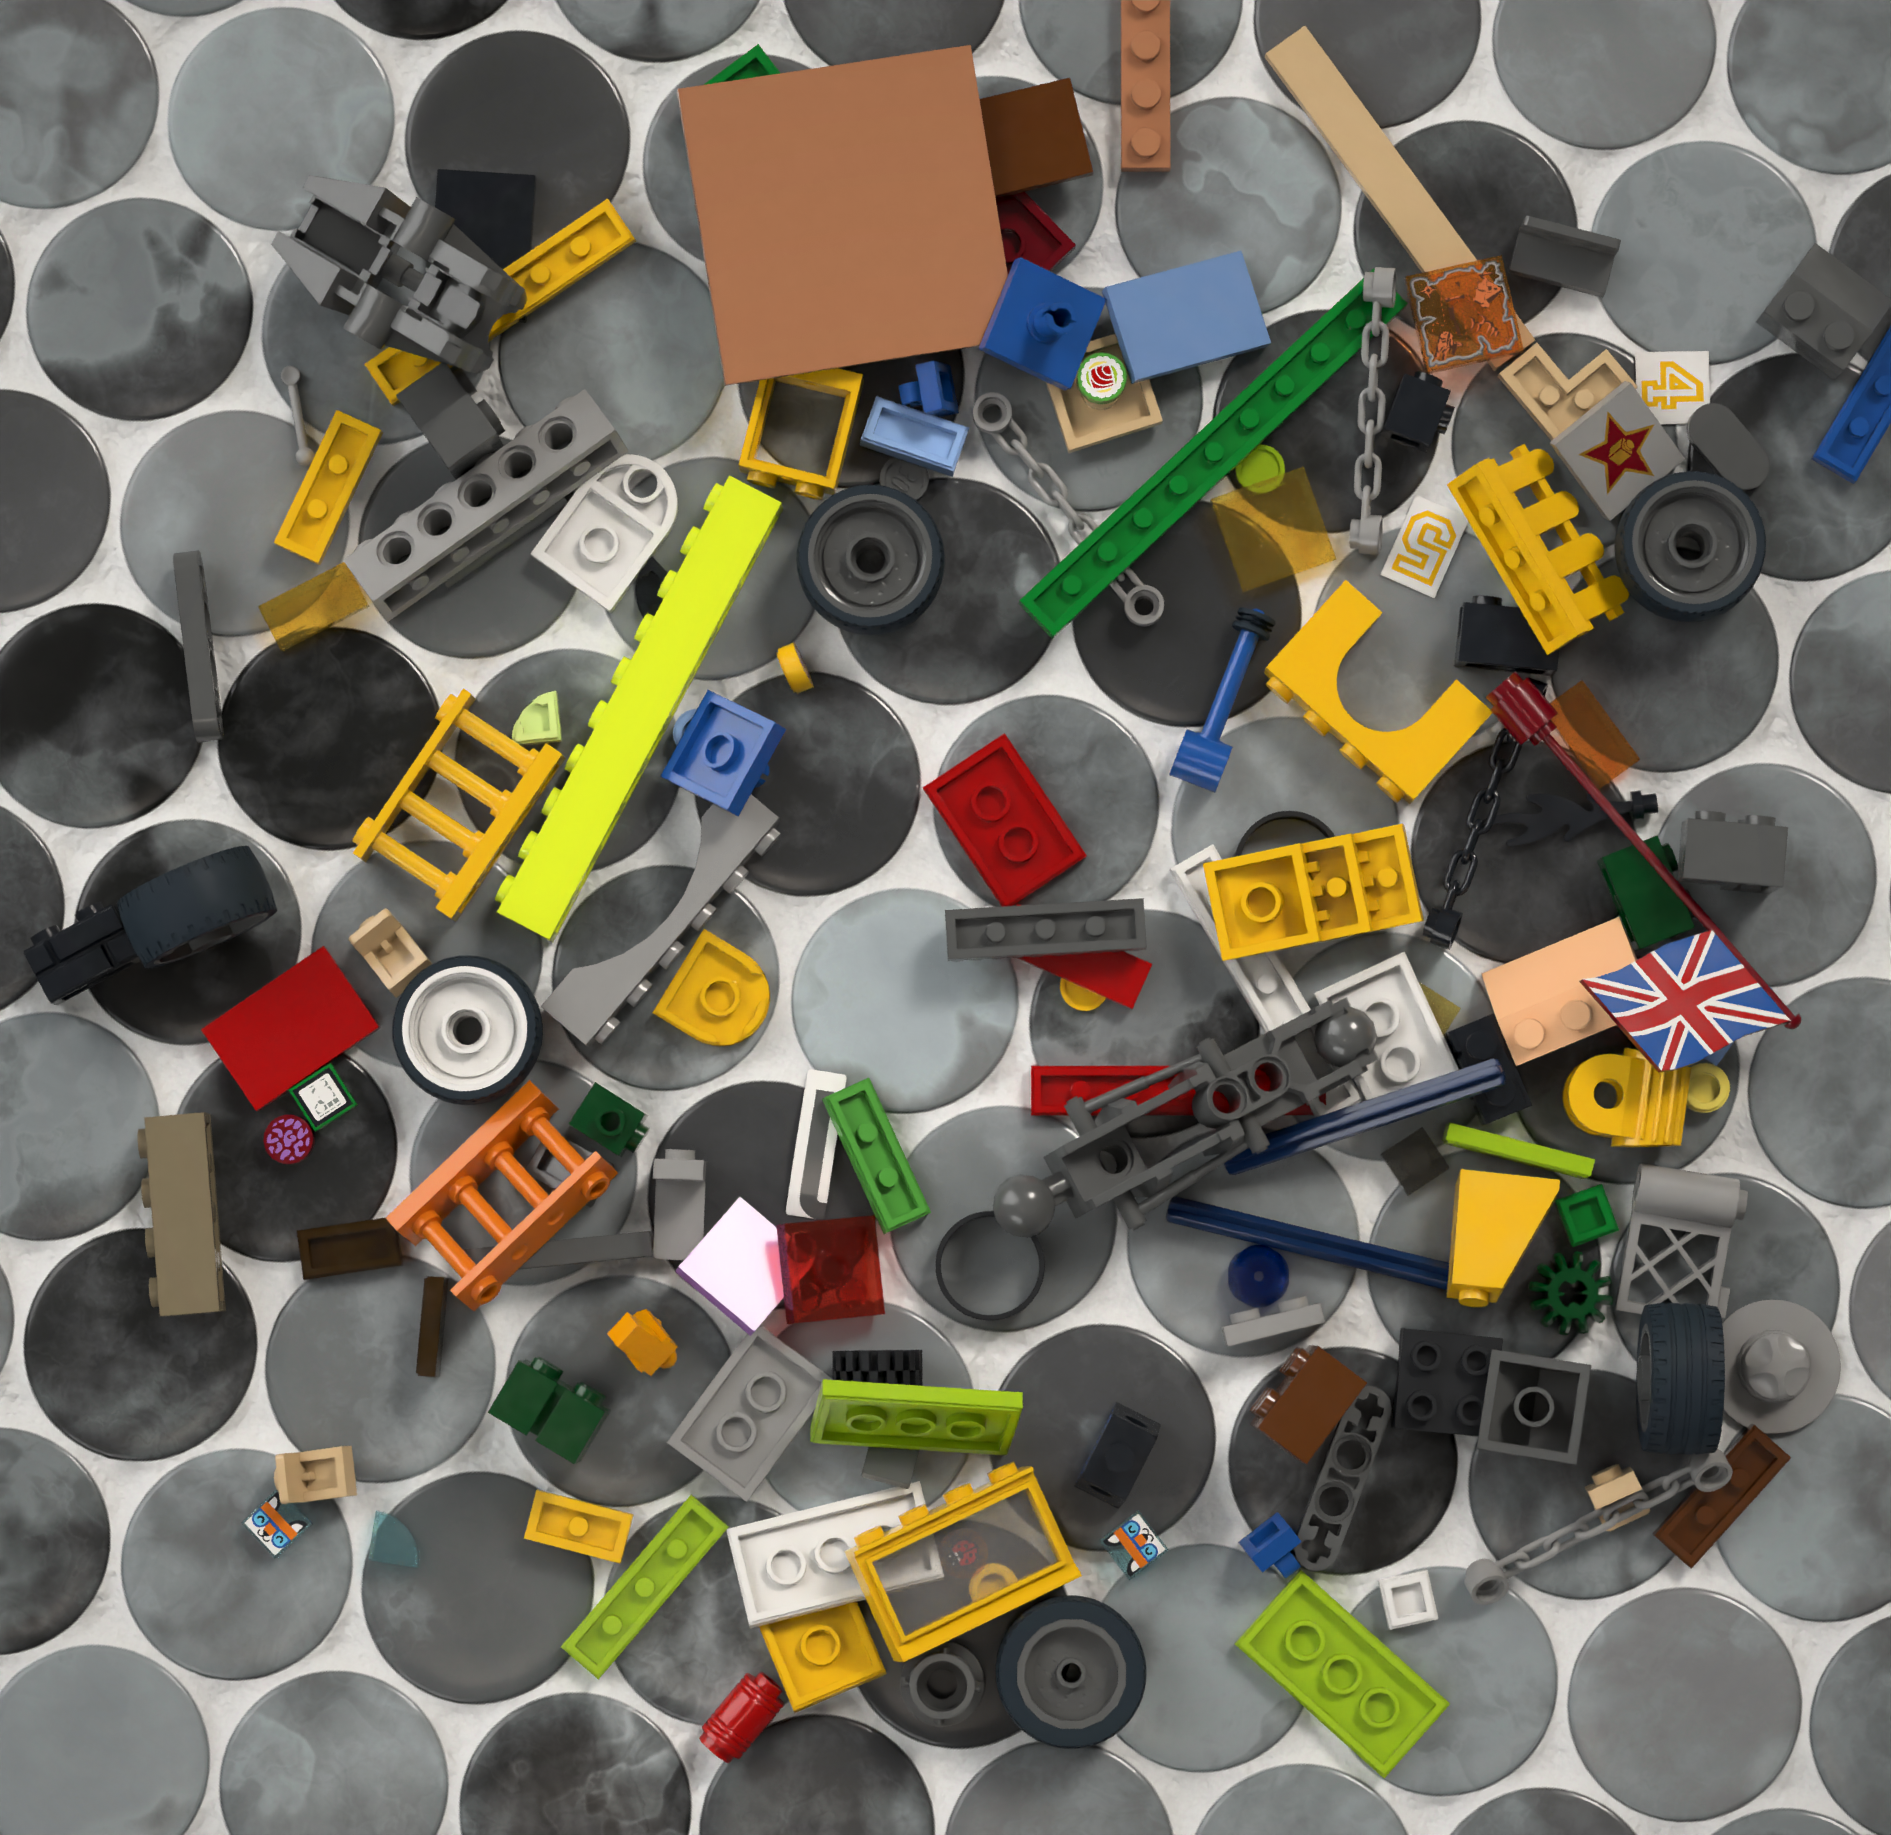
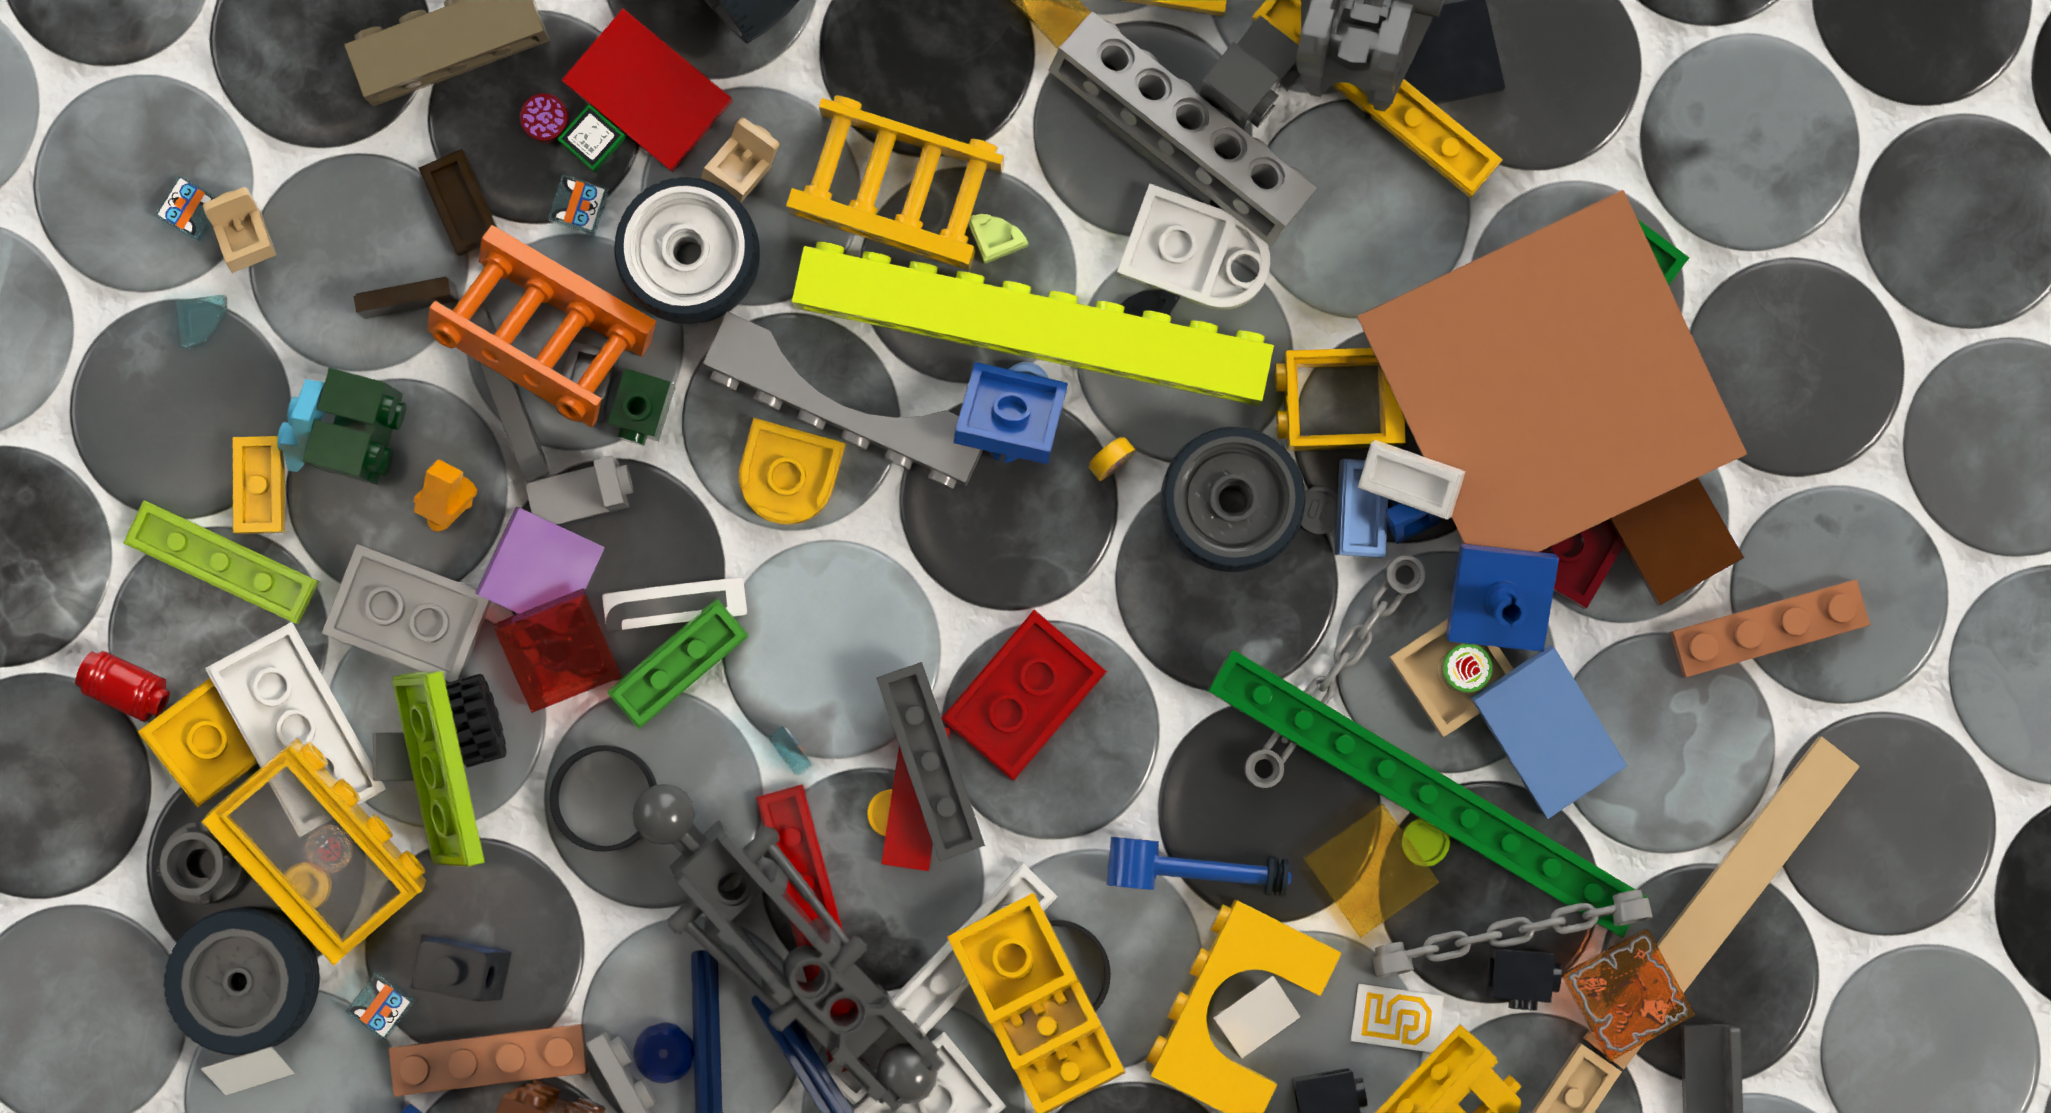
camera: 70 degrees right, 0 degrees up
(386, 1129) = (578, 204): none -> tile
(542, 1466) = (301, 414): none -> medium azure slope
(901, 378) = (1411, 479): none -> white tile
(995, 1066) = (790, 751): none -> clear light blue tile
(1161, 1691) = (248, 1071): none -> white sticker
(1216, 1452) = (488, 1060): none -> nougat plate
(1385, 681) = (1257, 1017): none -> white sticker

